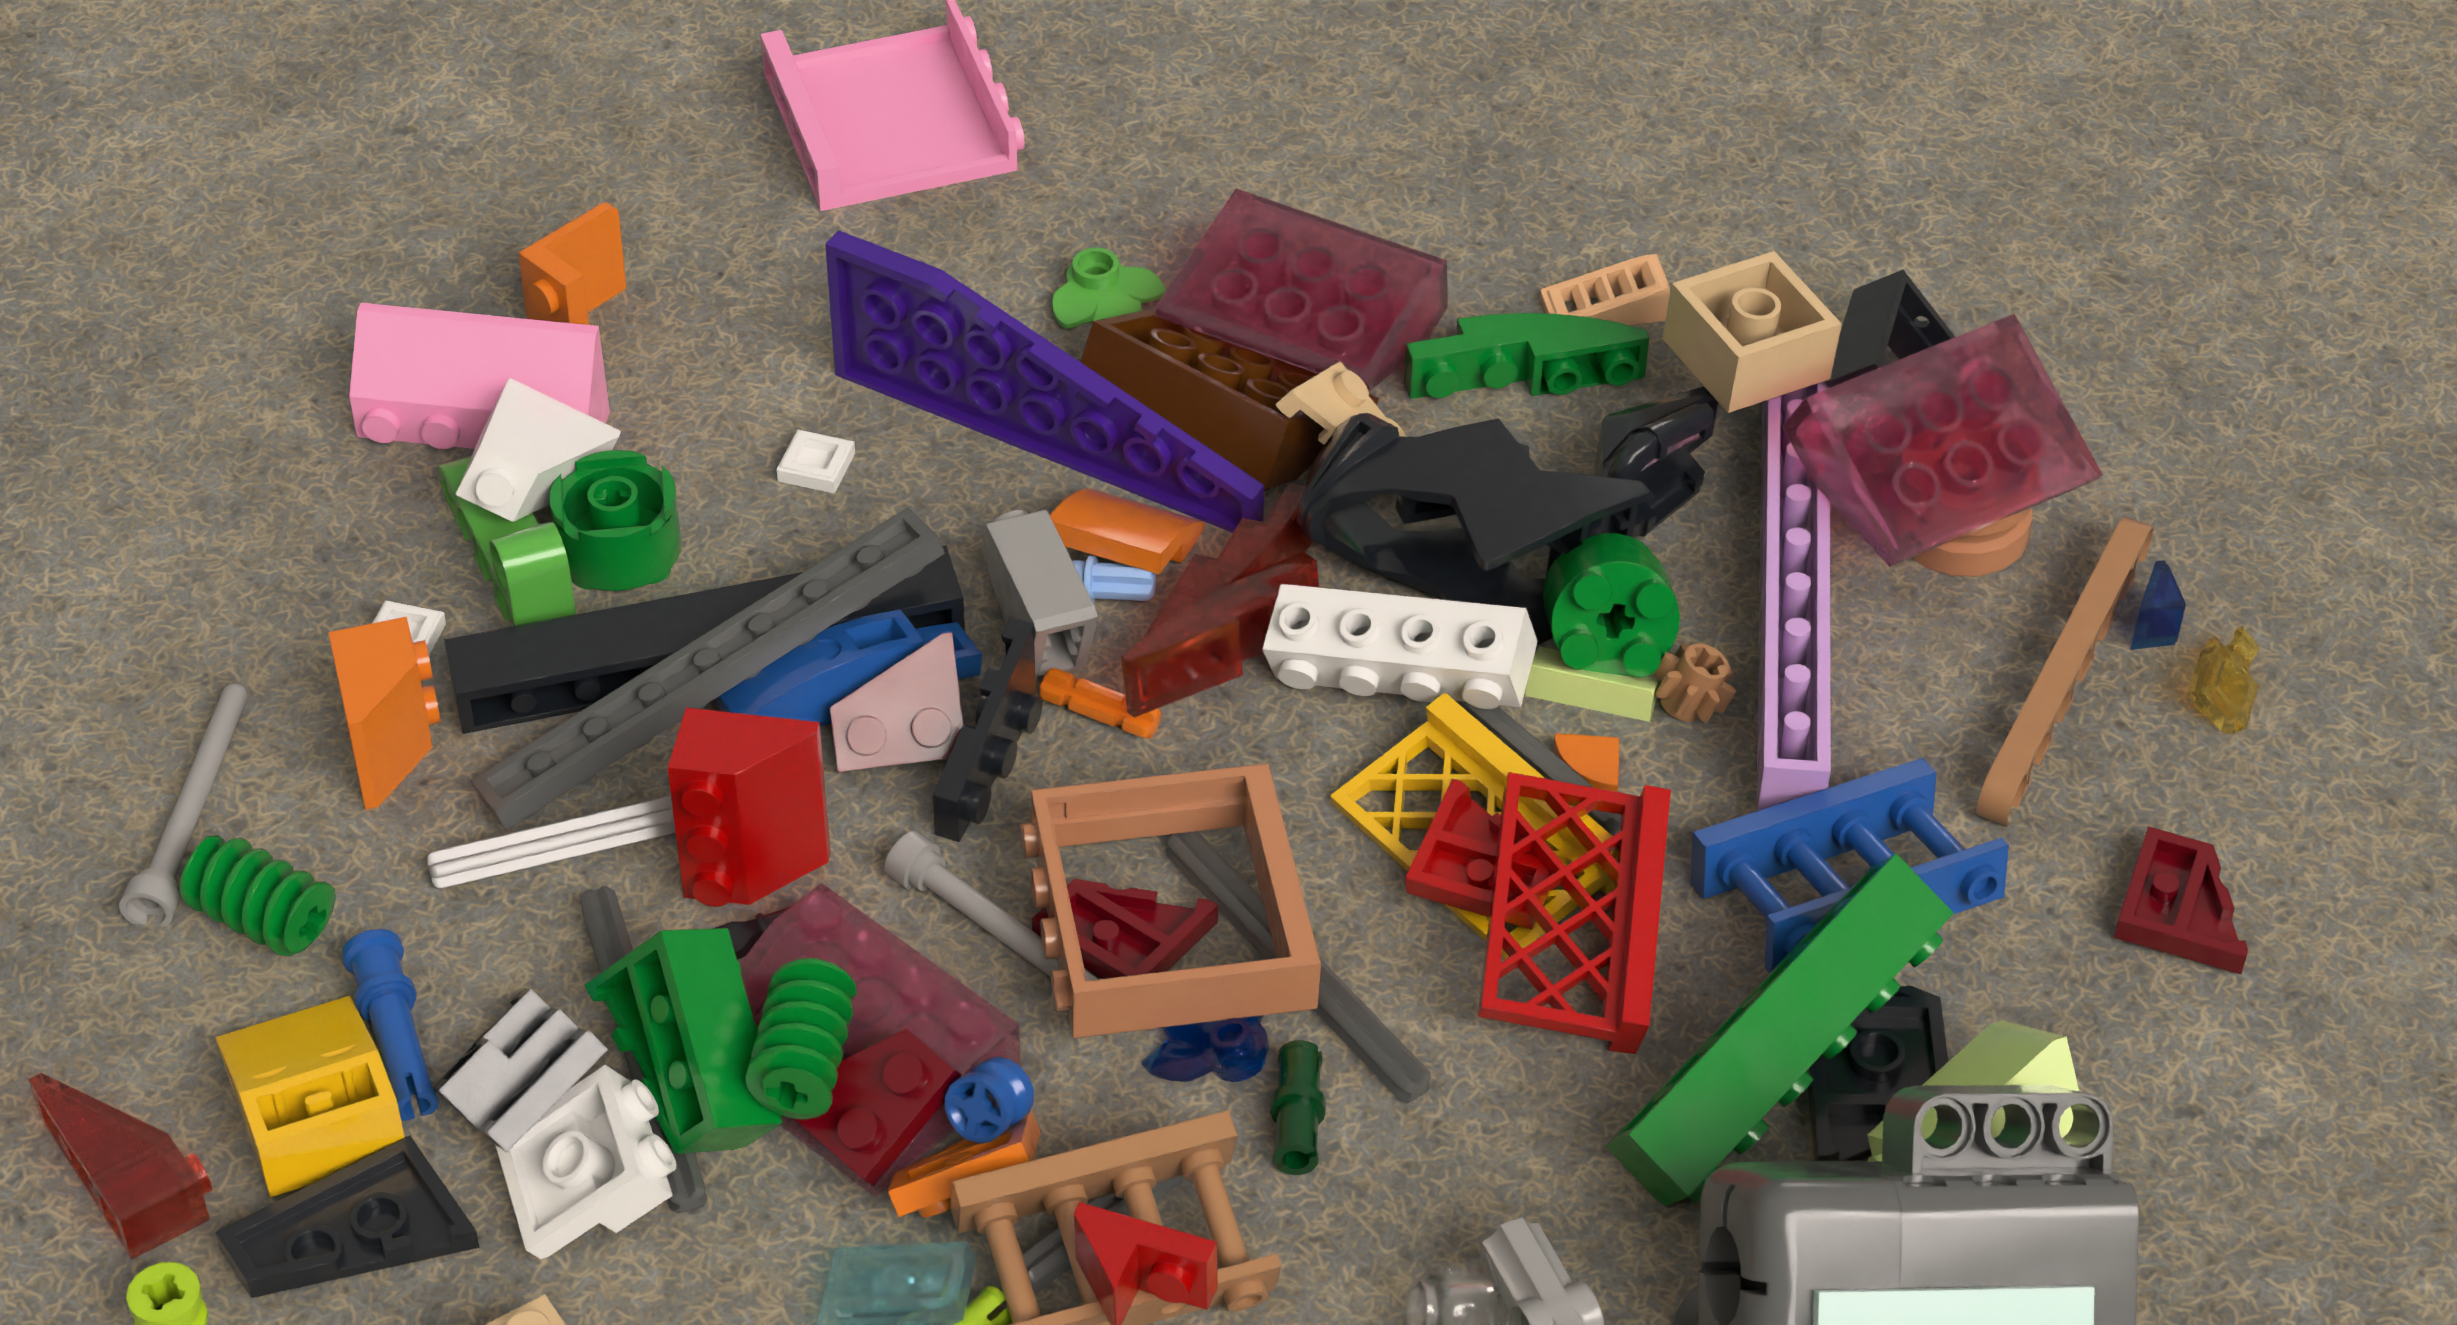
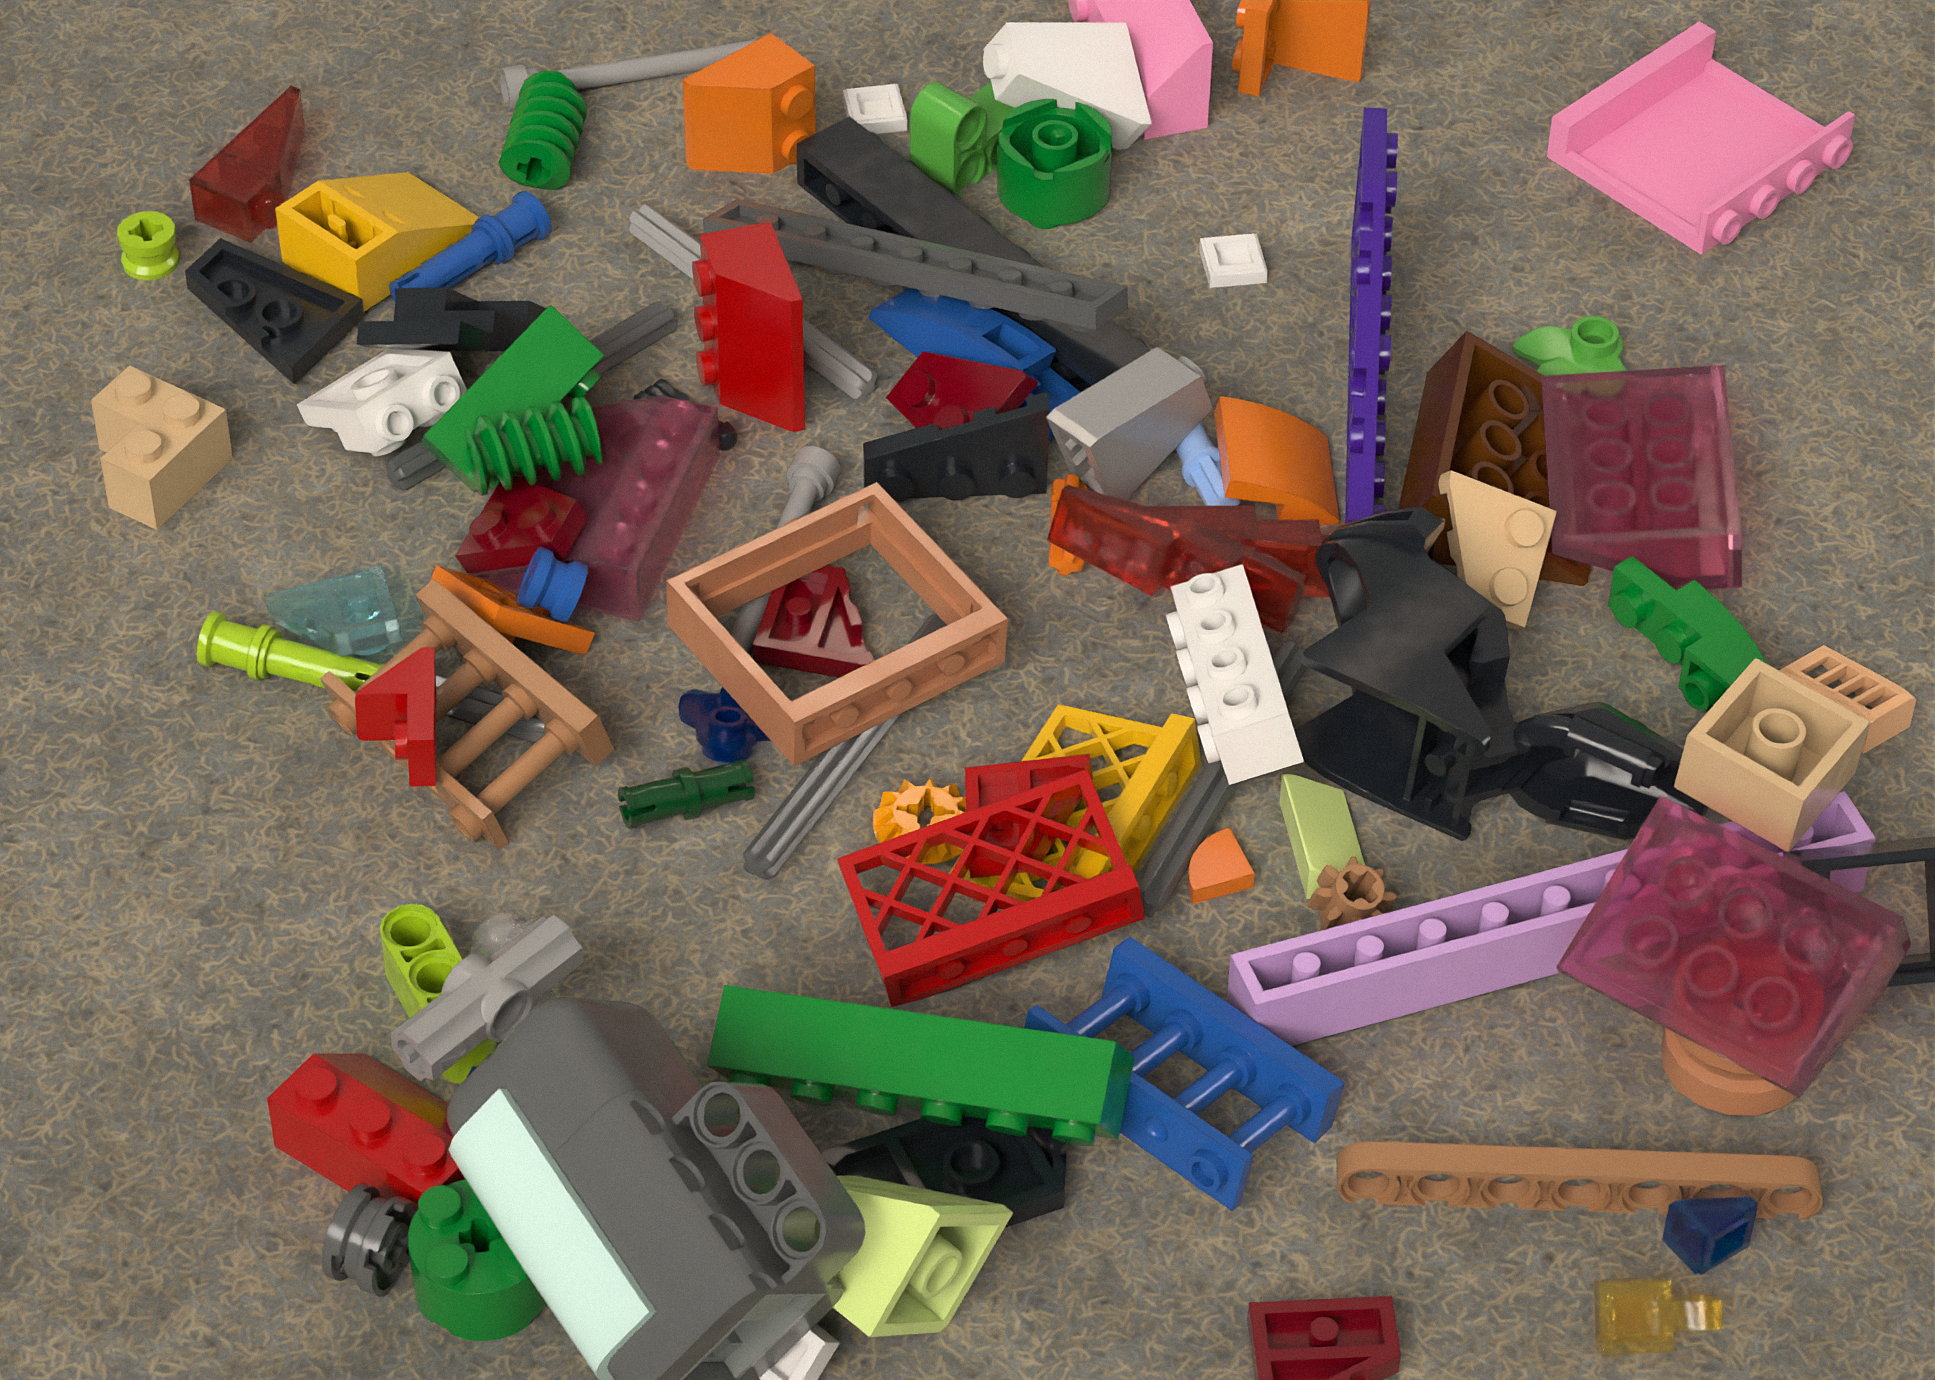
camera: 65 degrees right, 0 degrees up
(1435, 963) = (901, 809): none -> light orange gear
(1581, 598) = (1376, 795): green brick -> none

